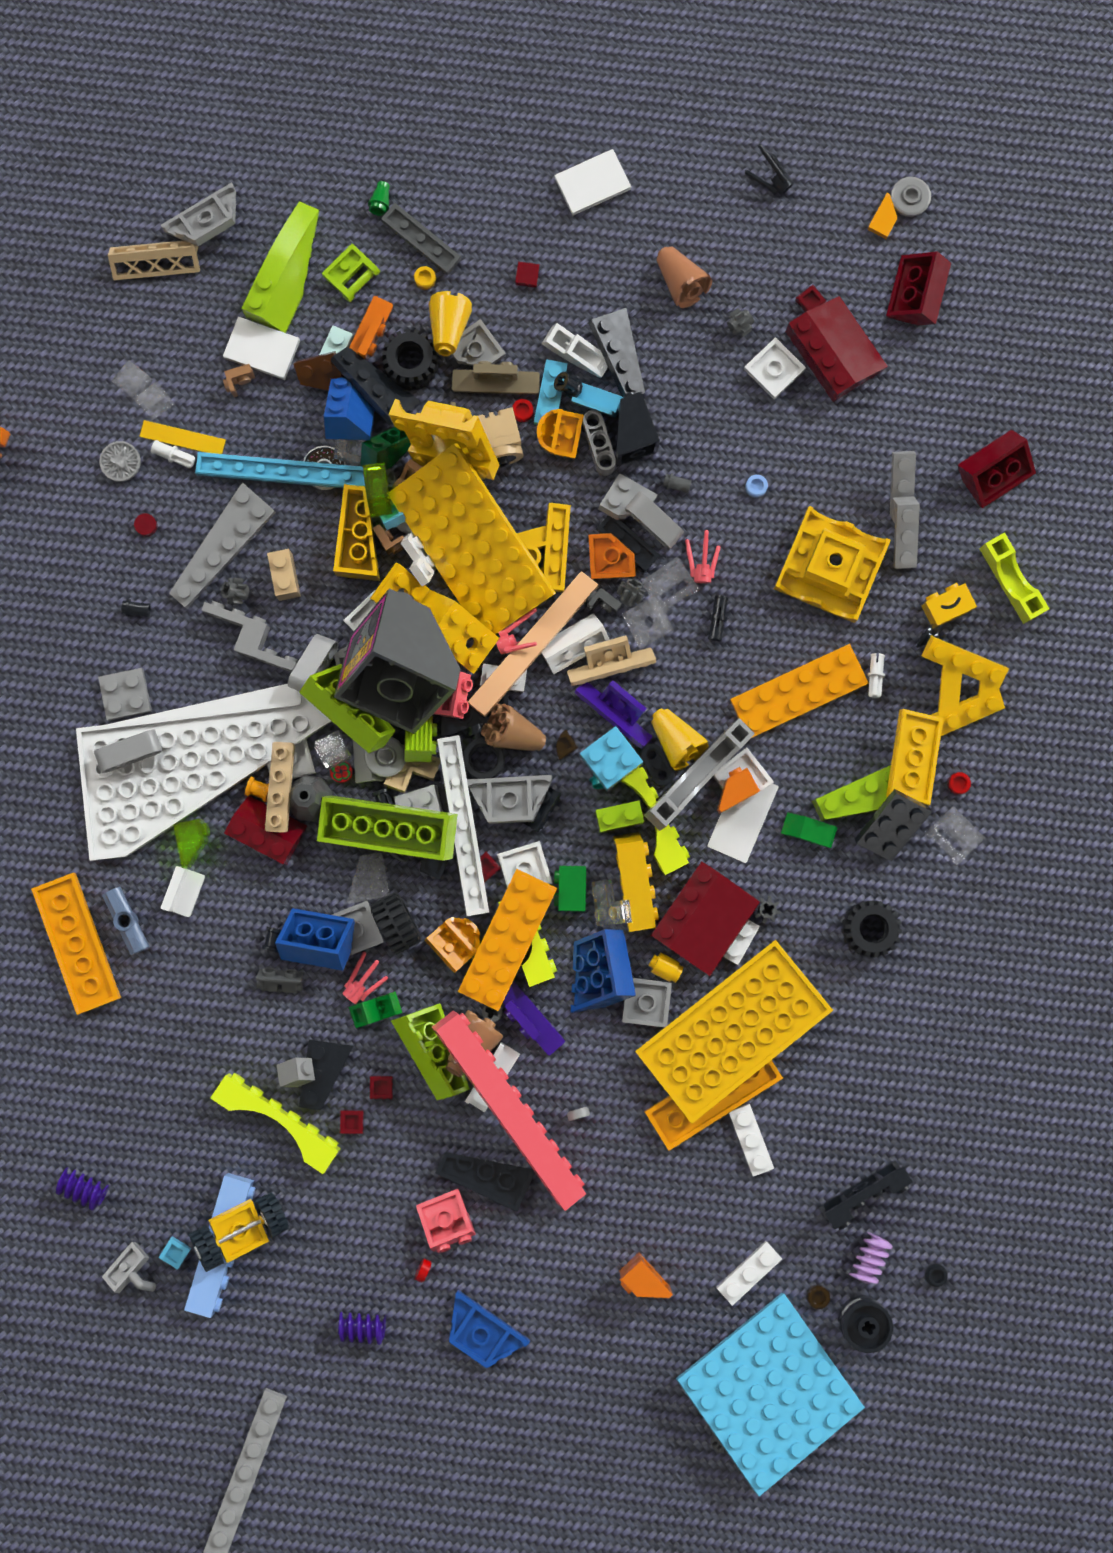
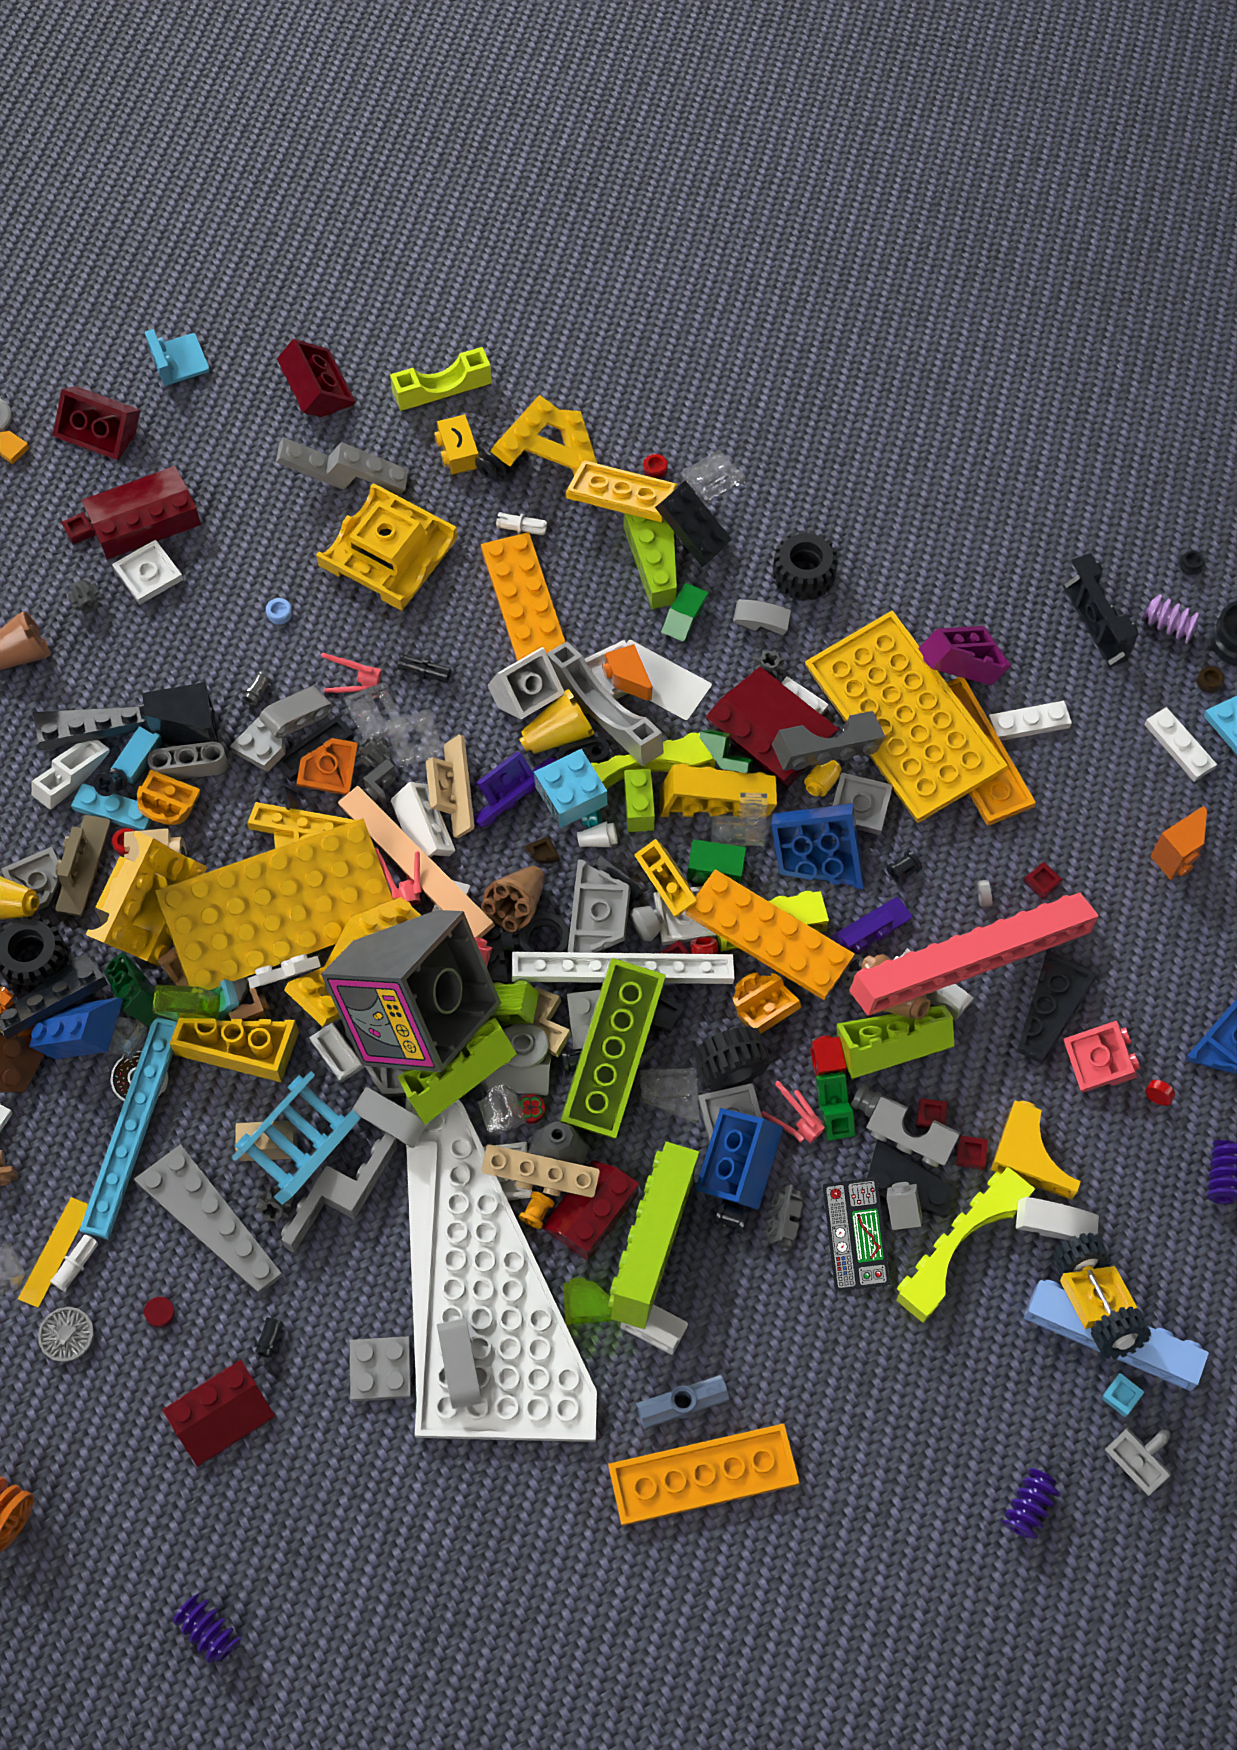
camera: 80 degrees left, 20 degrees down
(75, 584) = (218, 1413): none -> dark red slope
(240, 882) = (652, 1235): none -> lime brick
(274, 1037) = (856, 1234): none -> sticker
(282, 618) = (304, 1162): none -> medium azure fence
(300, 1193) = (1054, 1219): none -> white slope
(351, 1089) = (889, 1123): none -> light grey arch
(356, 1161) = (1025, 1154): none -> yellow arch
(382, 1034) = (866, 1100): none -> dark grey wheel
(414, 999) = (827, 1055): none -> red brick
(495, 888) = (704, 945): none -> red tile
(509, 839) = (646, 922): none -> light grey cone
(546, 850) = (666, 877): none -> yellow slope
(574, 532) = (289, 798): none -> black piece
(583, 789) = (598, 836): none -> white cone
(592, 1045) = (904, 867): none -> black bush
(600, 1162) = (1043, 880): none -> dark red tile
(673, 874) = (718, 746): none -> slope
(701, 992) = (800, 748): none -> dark grey arch
(703, 706) = (526, 685): none -> white slope
(798, 1079) = (965, 653): none -> magenta wedge
(816, 897) = (756, 613): none -> light grey slope
(999, 342) = (177, 358): none -> medium azure bracket

